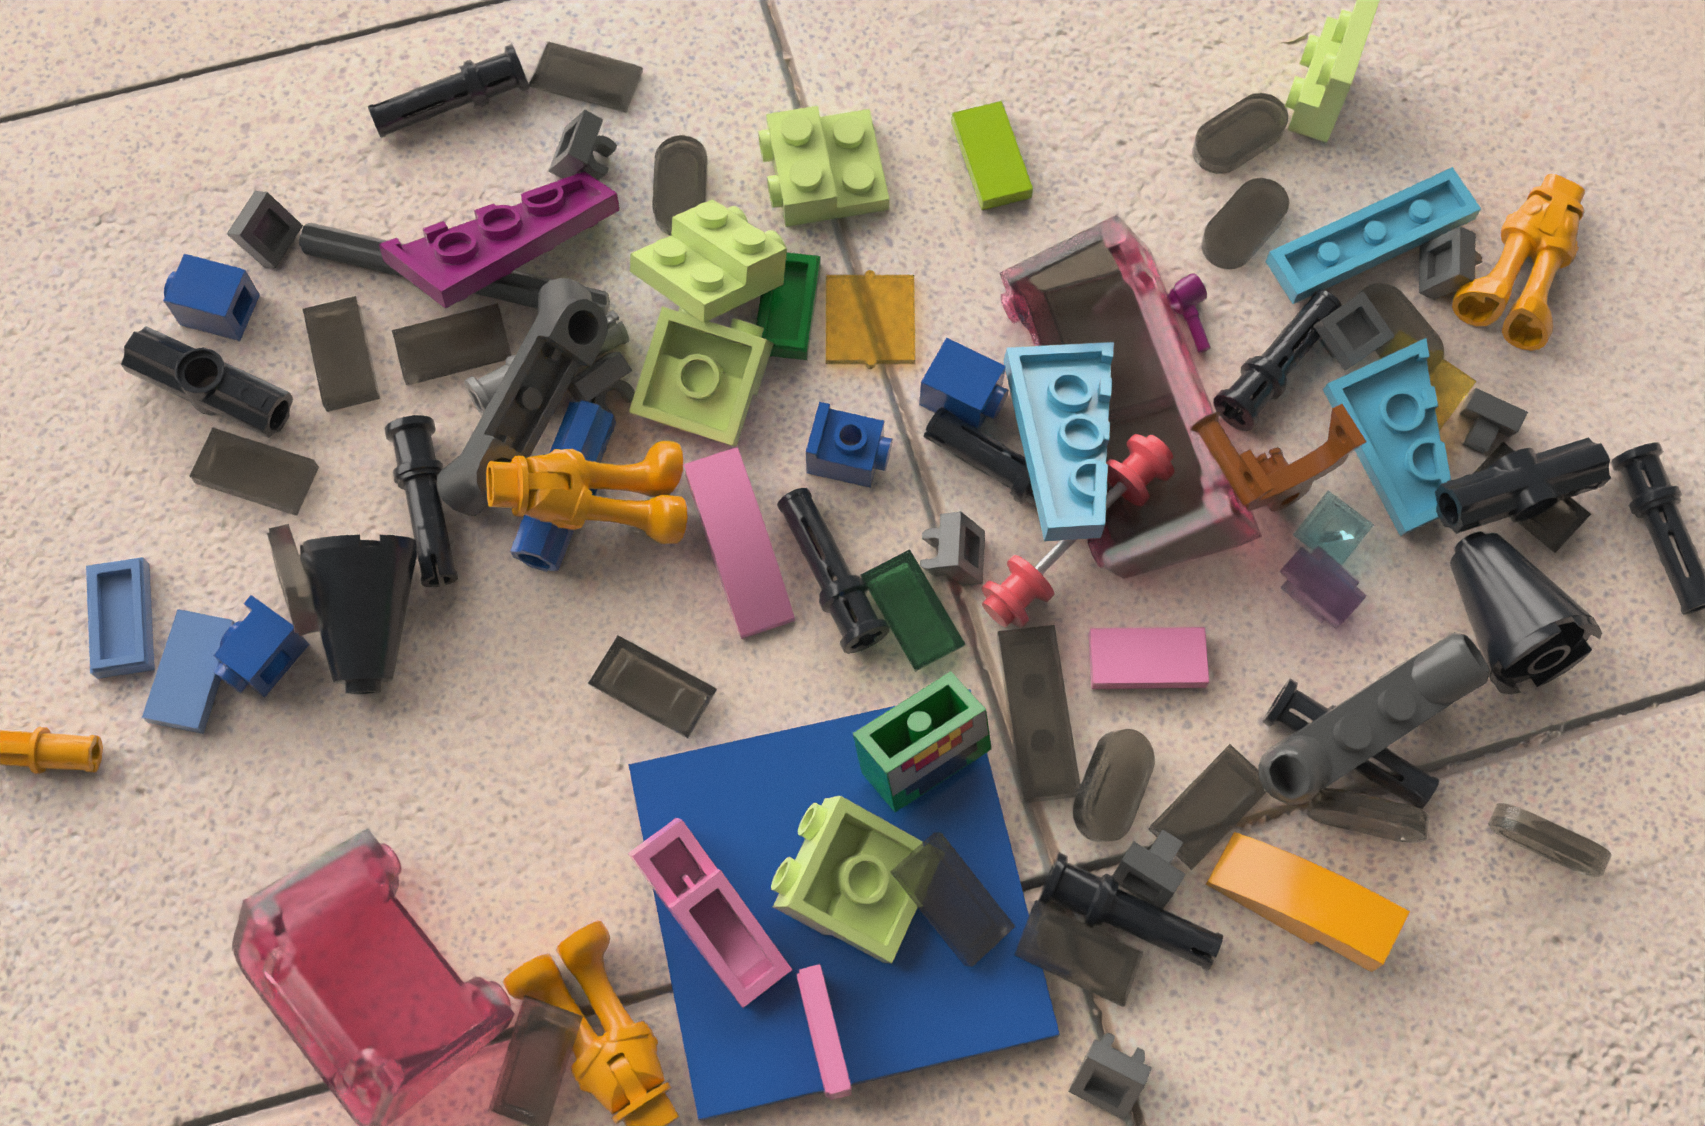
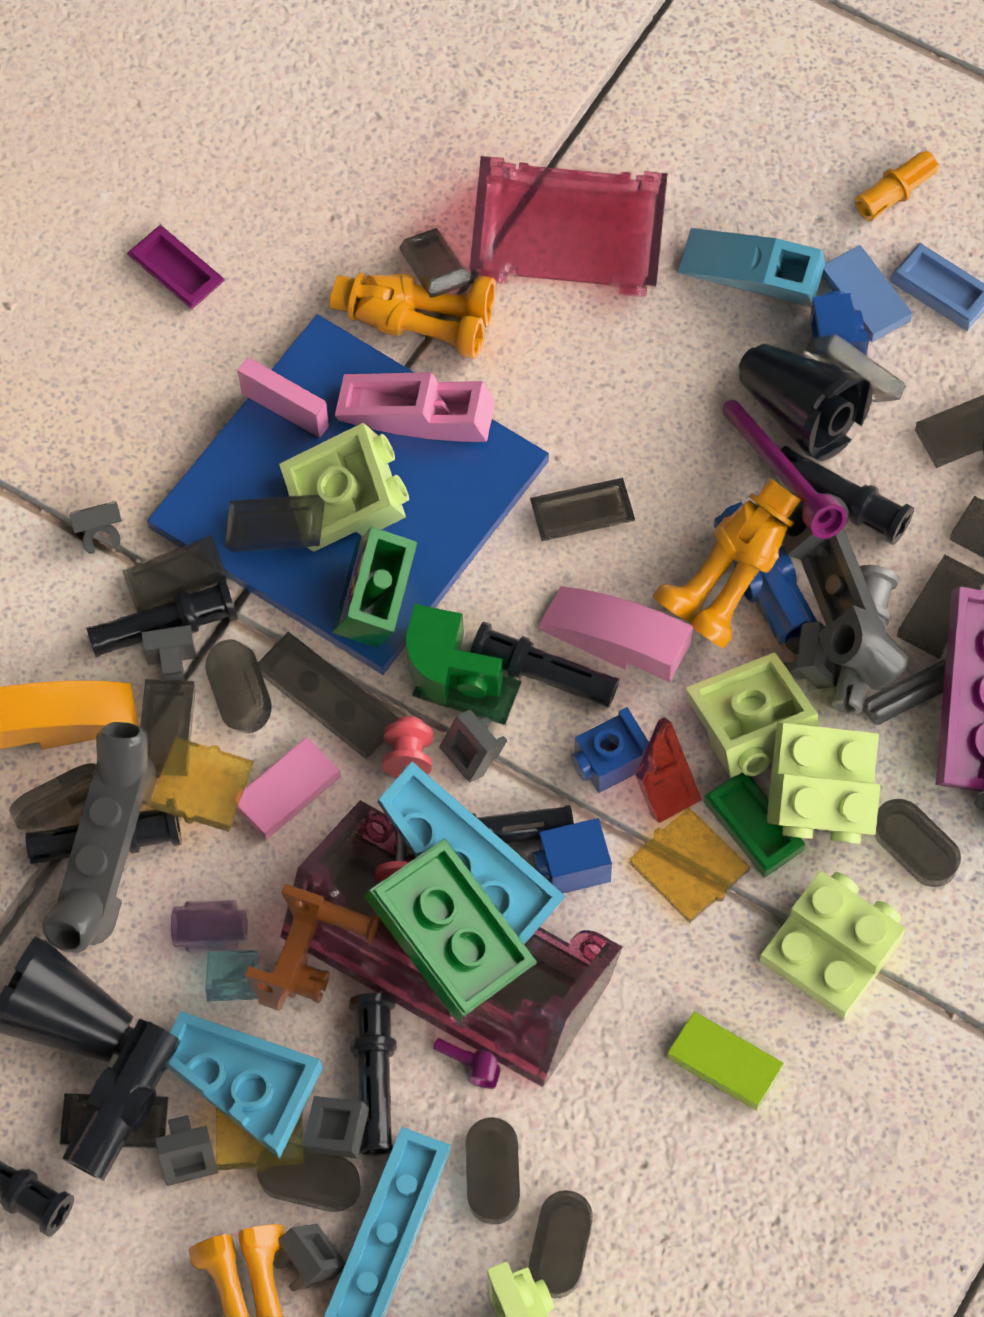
camera: 140 degrees right, 5 degrees down
(256, 775) = (754, 264): none -> medium azure slope
(484, 435) = (821, 512): none -> magenta piece
(826, 380) = (666, 774): none -> clear red tile
(923, 640) = (438, 662): none -> green brick
(1137, 378) = (450, 929): none -> tile
(1230, 708) = (201, 784): none -> clear yellow piece

